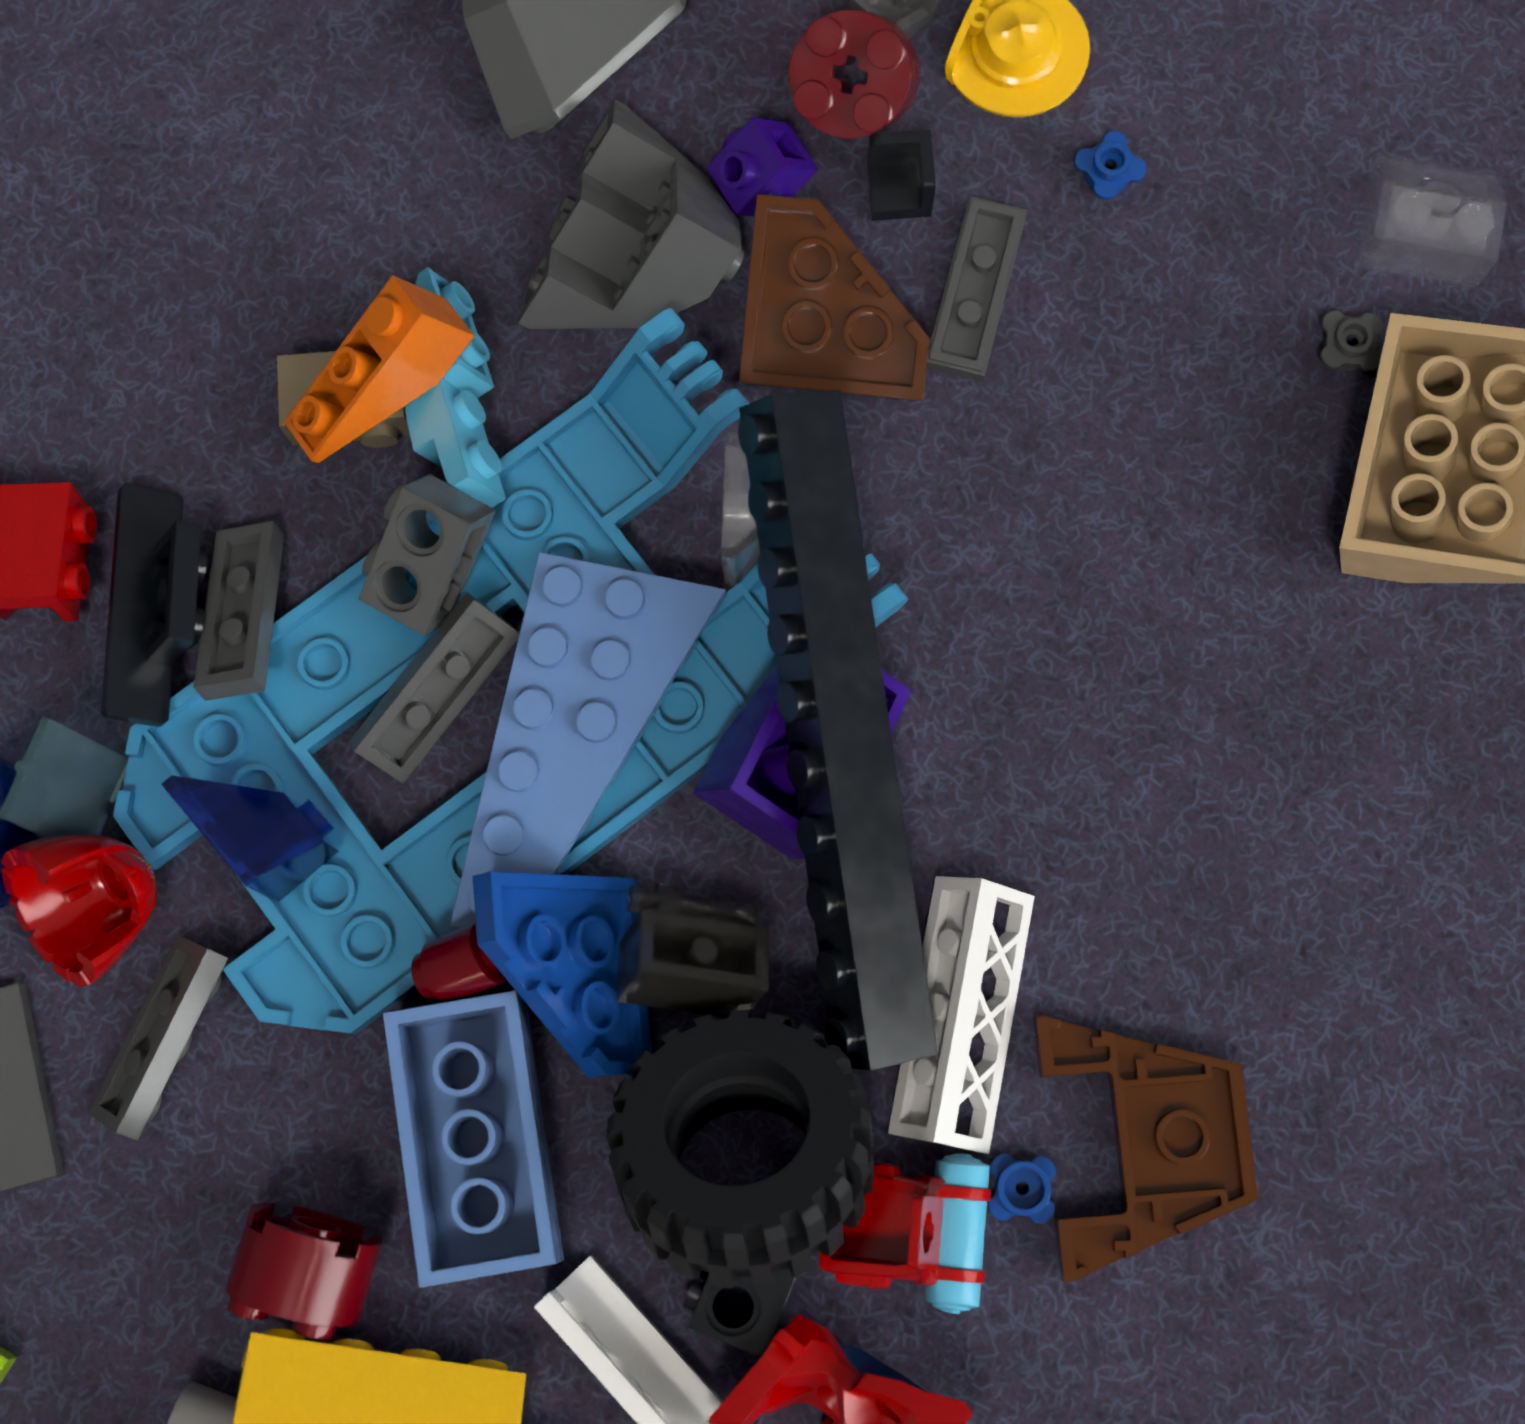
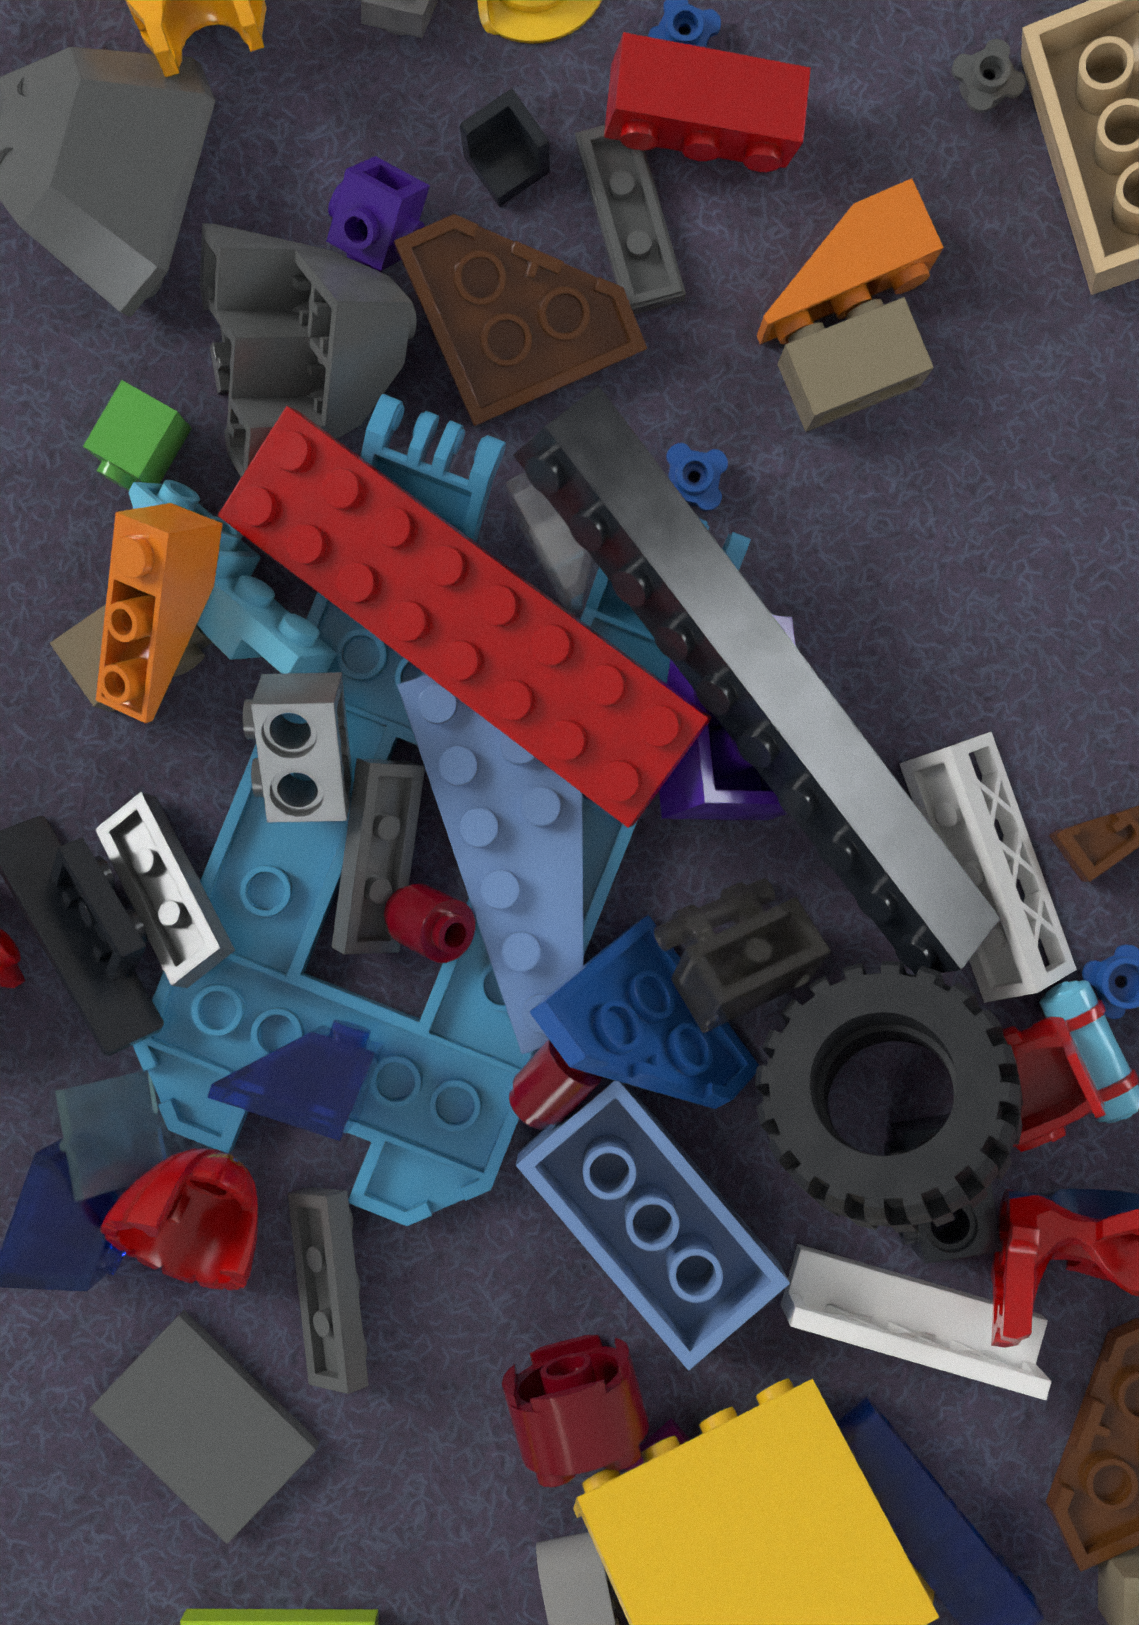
camera: 30 degrees left, 10 degrees up
(443, 767) = (430, 922): none -> dark red brick
(454, 235) = (136, 437): none -> bright green brick
(627, 529) = (463, 617): none -> red plate
(826, 96) = (389, 107): dark red brick -> none
(900, 547) = (708, 466): none -> blue plate
(1090, 230) = (706, 103): none -> red brick
(1094, 510) = (854, 362): none -> dark tan brick
(1157, 425) = (872, 248): none -> orange slope

